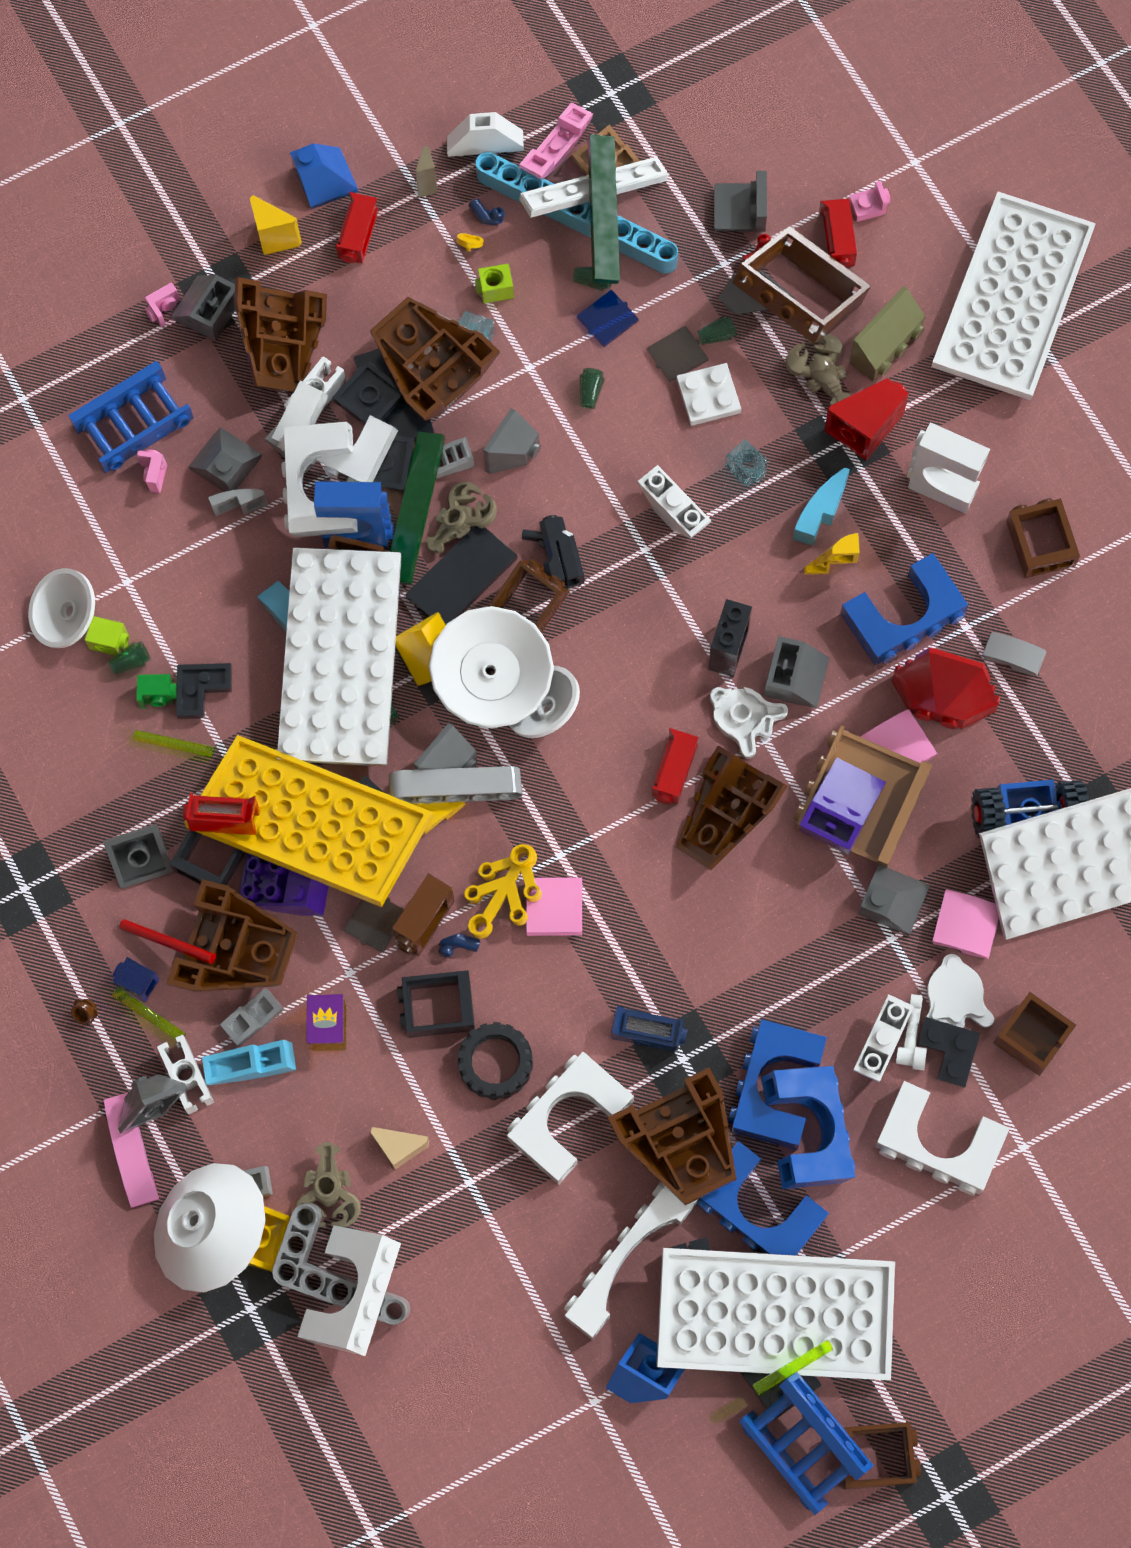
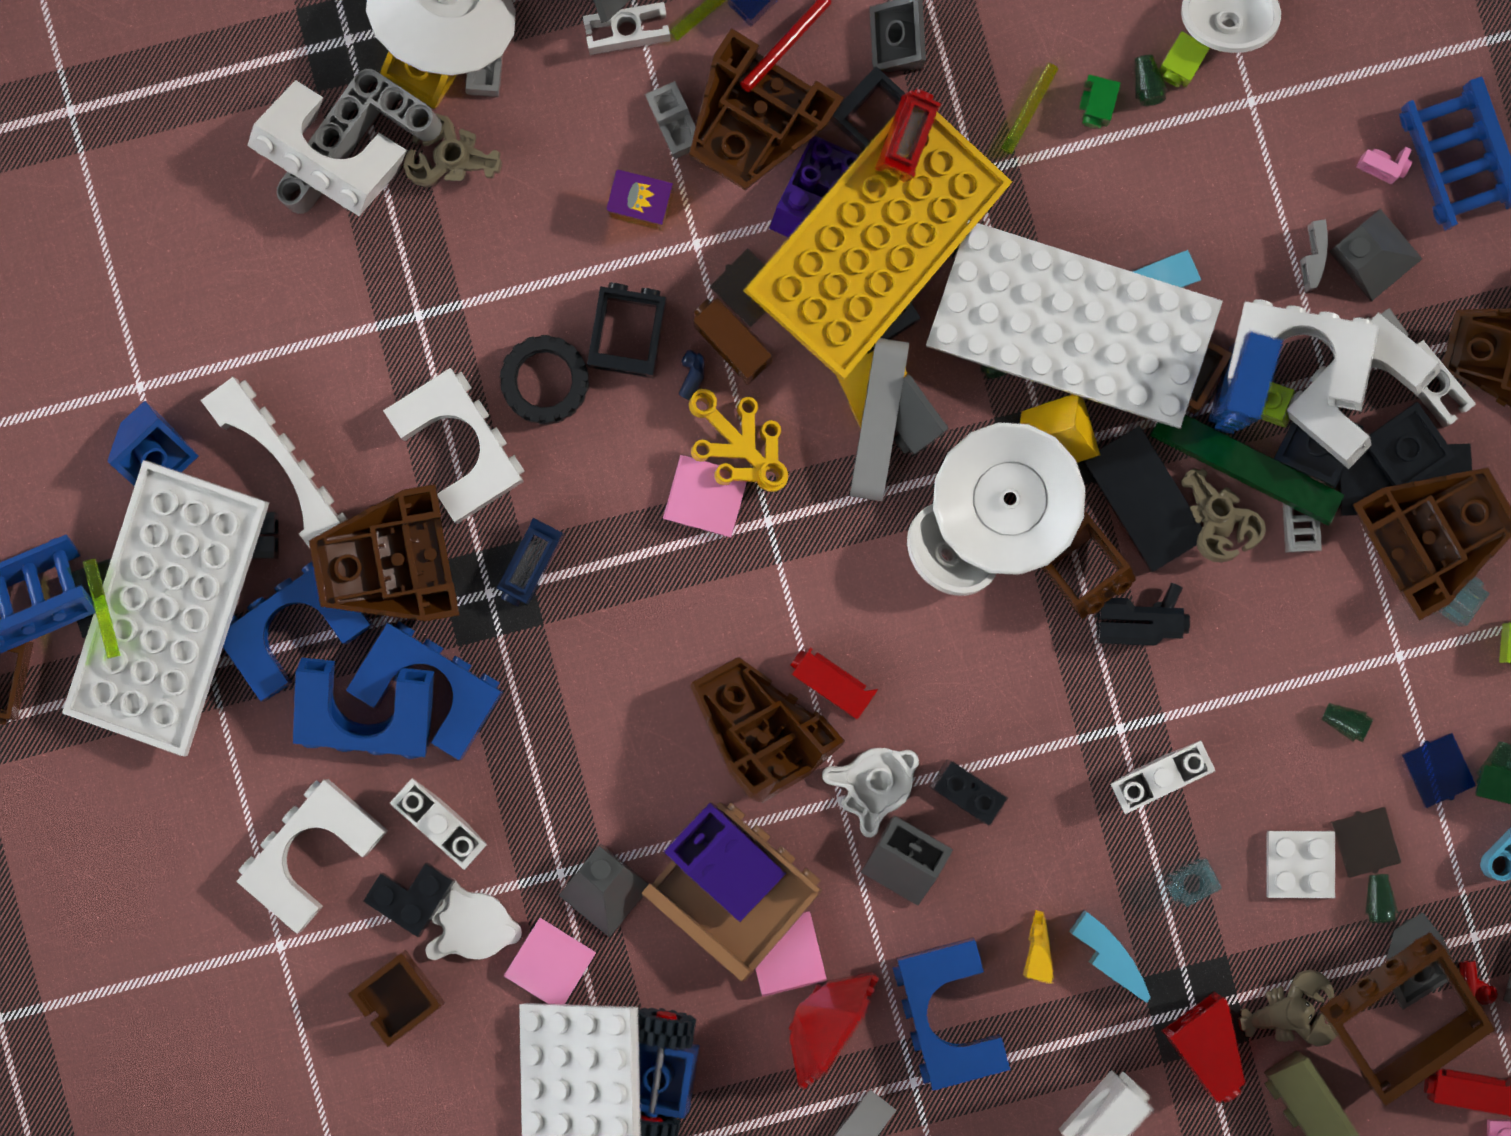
camera: 105 degrees right, 15 degrees up
(195, 681) = (1097, 149): black plate -> none
(249, 1063) = (620, 103): medium azure slope -> none
(399, 1146) = (477, 245): tan slope -> none
(511, 444) = (1294, 603): dark grey slope -> none
(910, 1054) = (418, 851): white brick -> none

